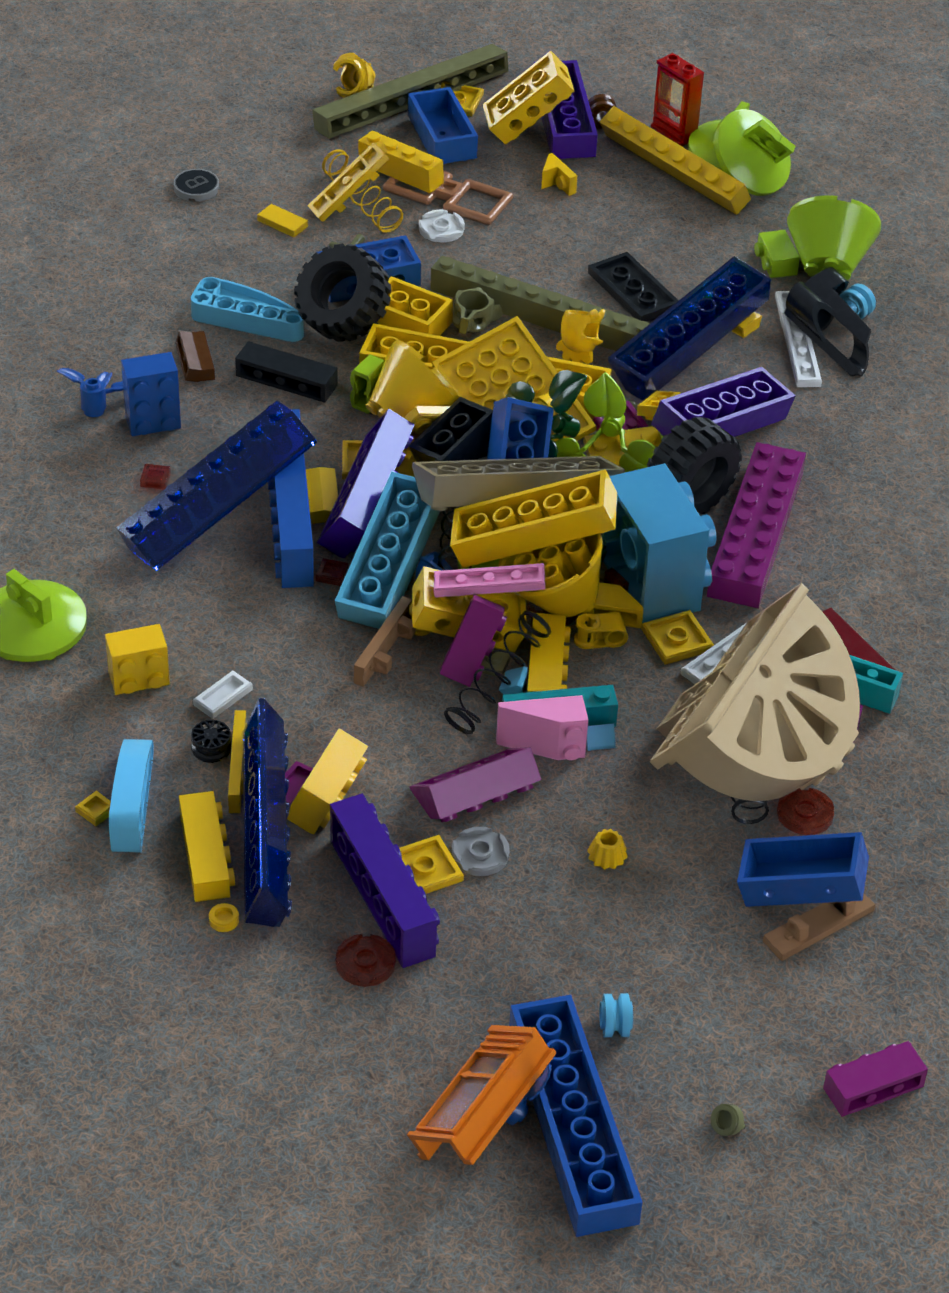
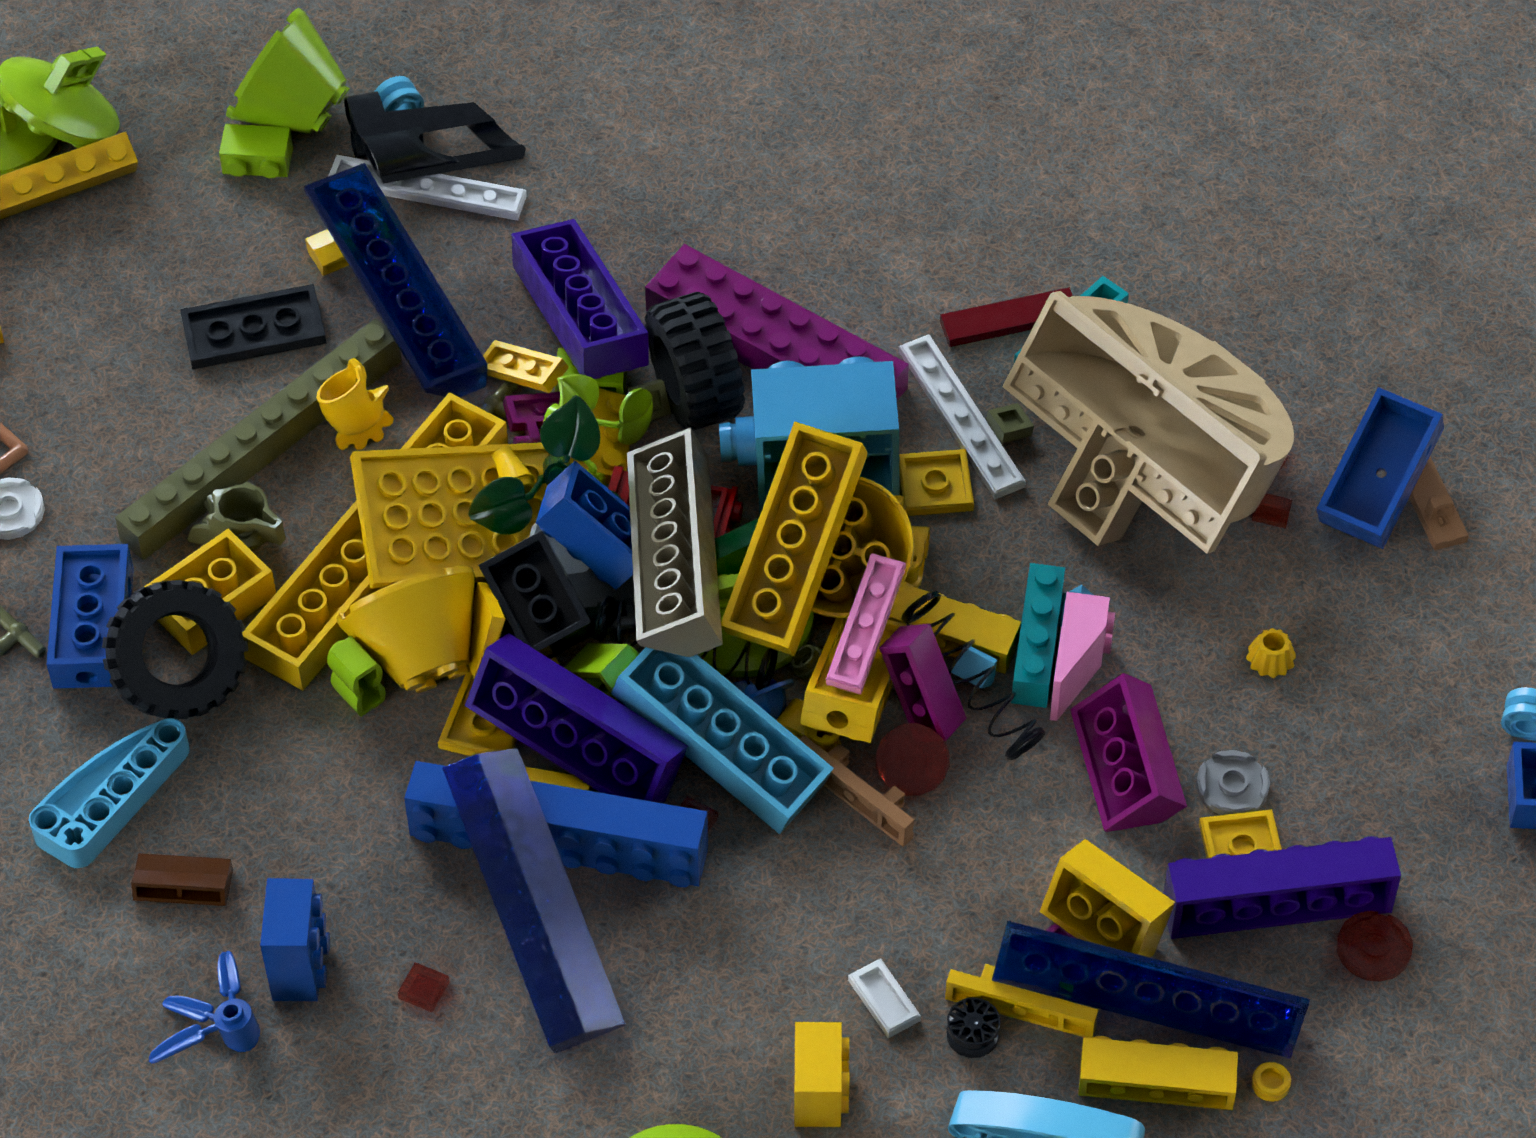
camera: 70 degrees left, 10 degrees up
(286, 371) = (269, 772): black brick -> none
(420, 663) = (913, 759): none -> clear red tile
(743, 824) = (1273, 511): none -> clear red tile

